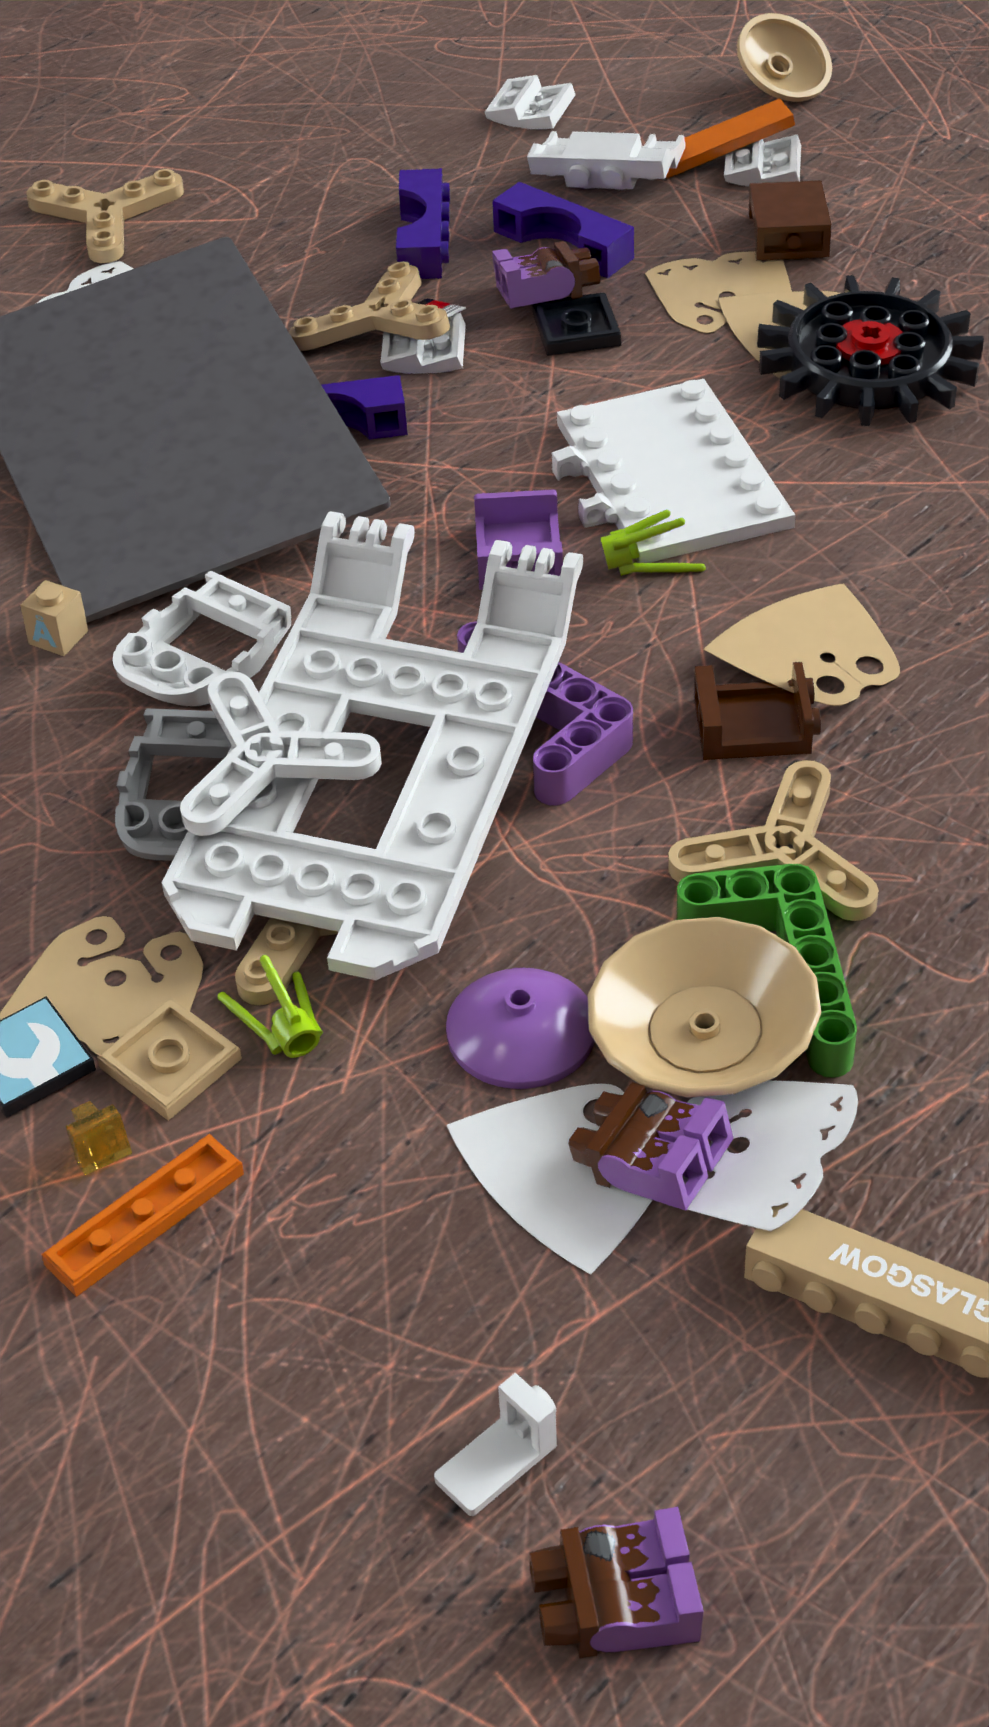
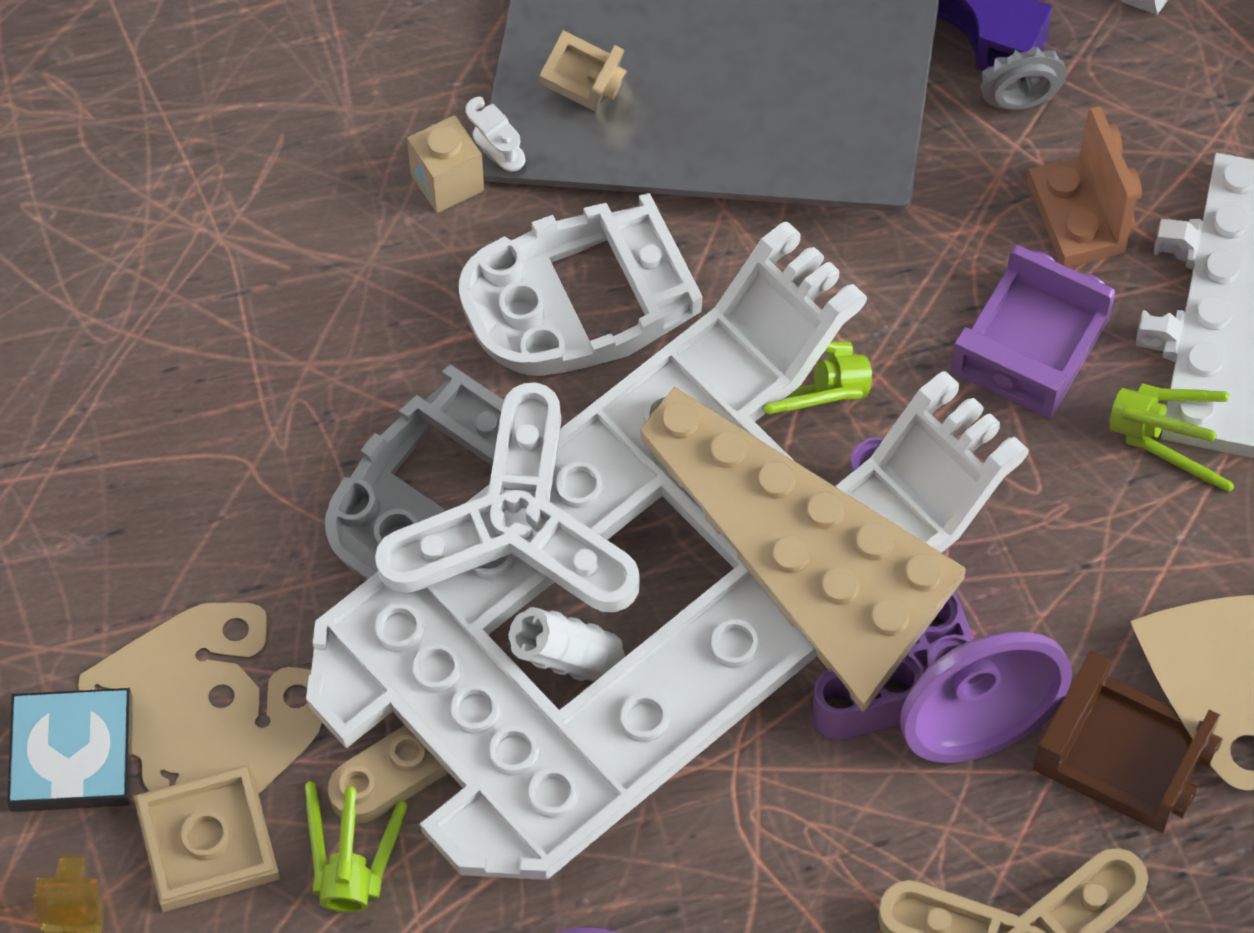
camera: 30 degrees right, 15 degrees up
(86, 578) = (495, 135): none -> white piece
(116, 524) = (583, 71): none -> tan bracket
(347, 816) = (564, 644): none -> white axle
(414, 611) = (835, 379): none -> lime plant
(421, 415) = (1043, 76): none -> light grey gear
(476, 681) = (821, 556): none -> tan wing
(503, 451) = (1088, 198): none -> nougat bracket
(653, 709) = (985, 696): none -> medium lavender dish

